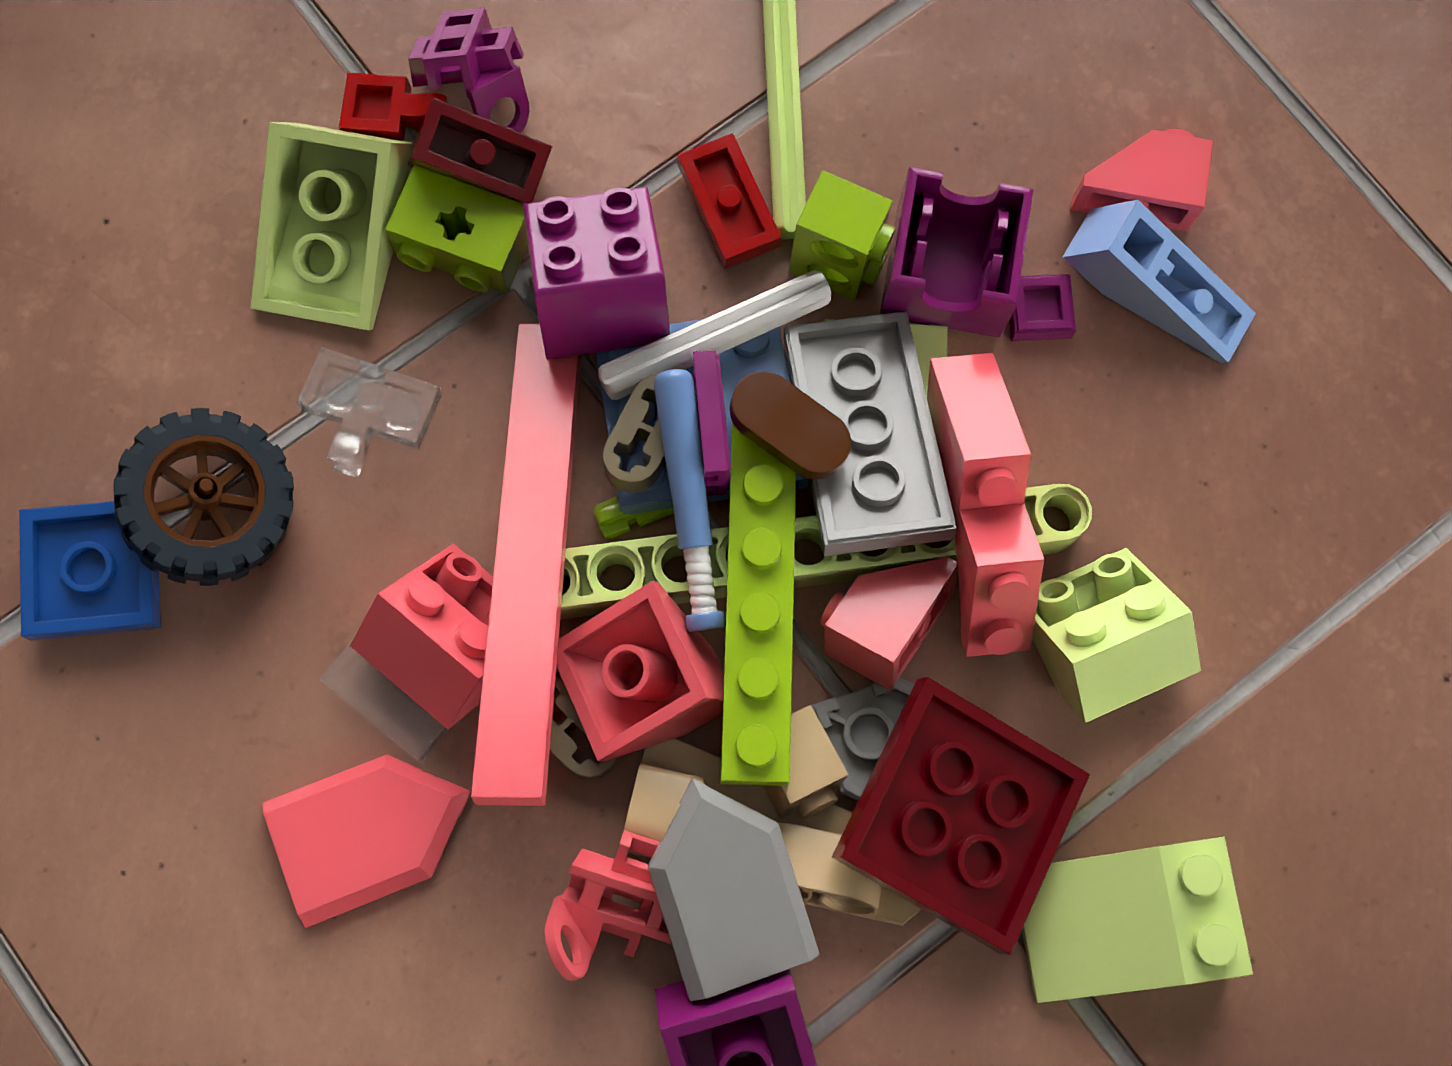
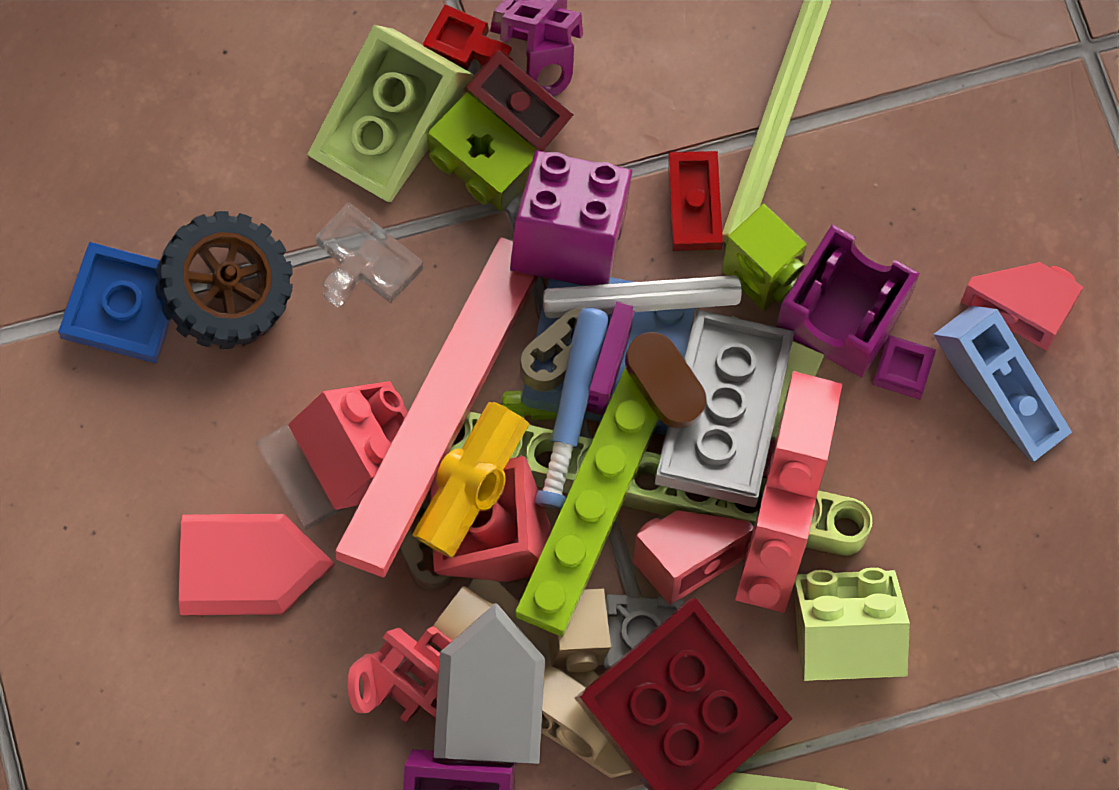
camera: 25 degrees right, 5 degrees down
(601, 634) = (470, 479): none -> yellow piece

